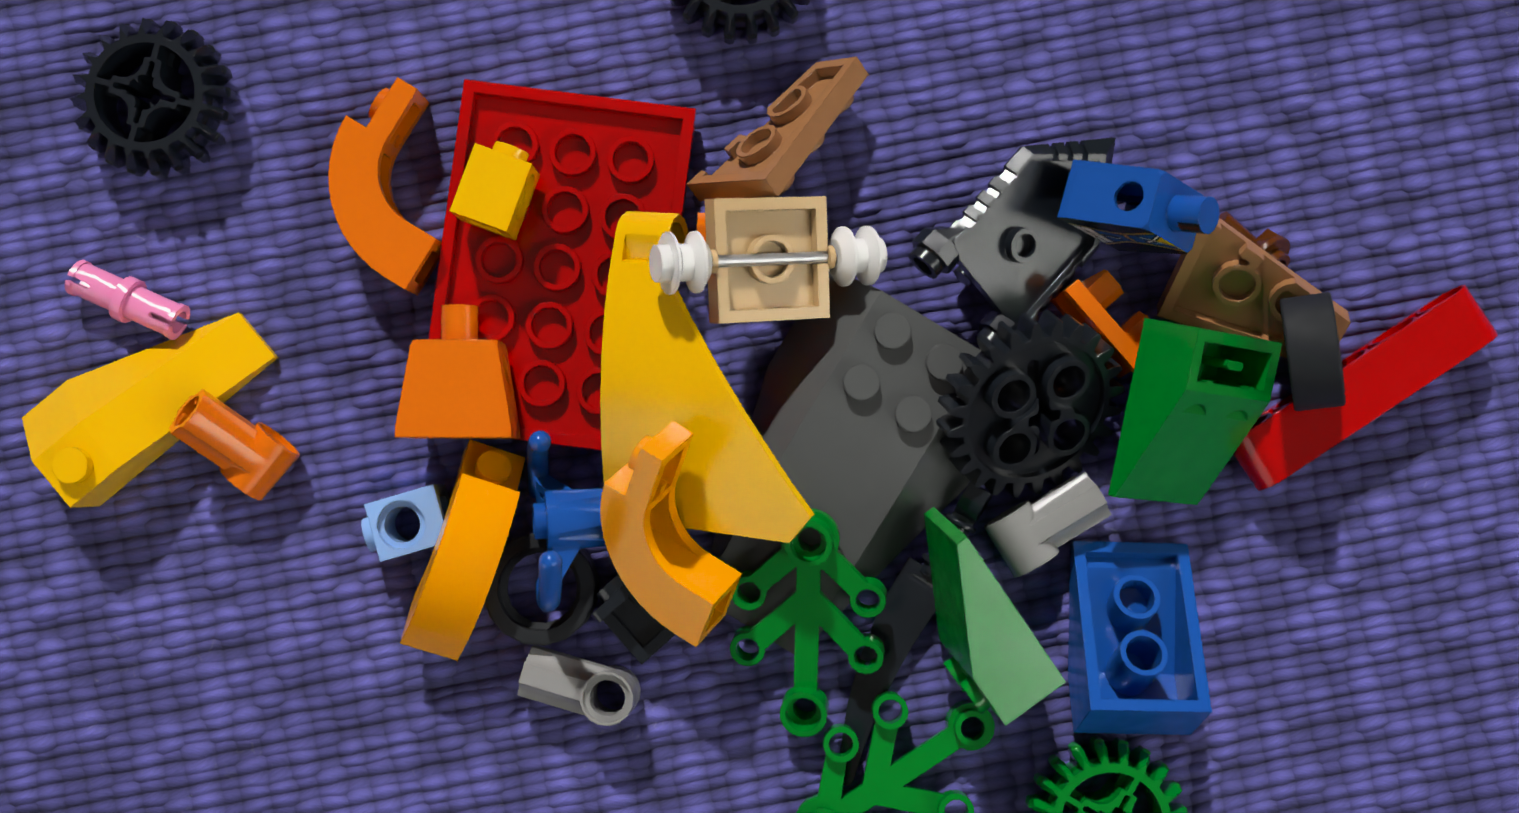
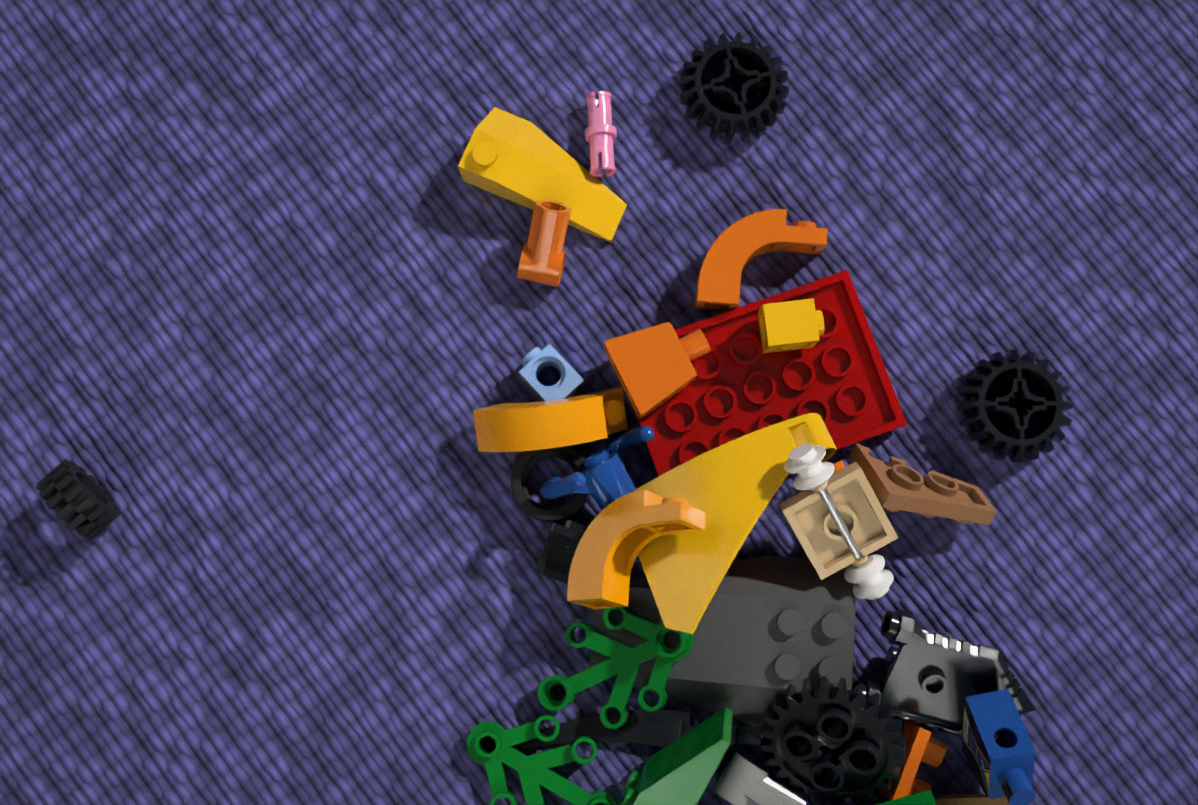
camera: 65 degrees right, 5 degrees down
(573, 684) = (499, 532): light grey piece -> none

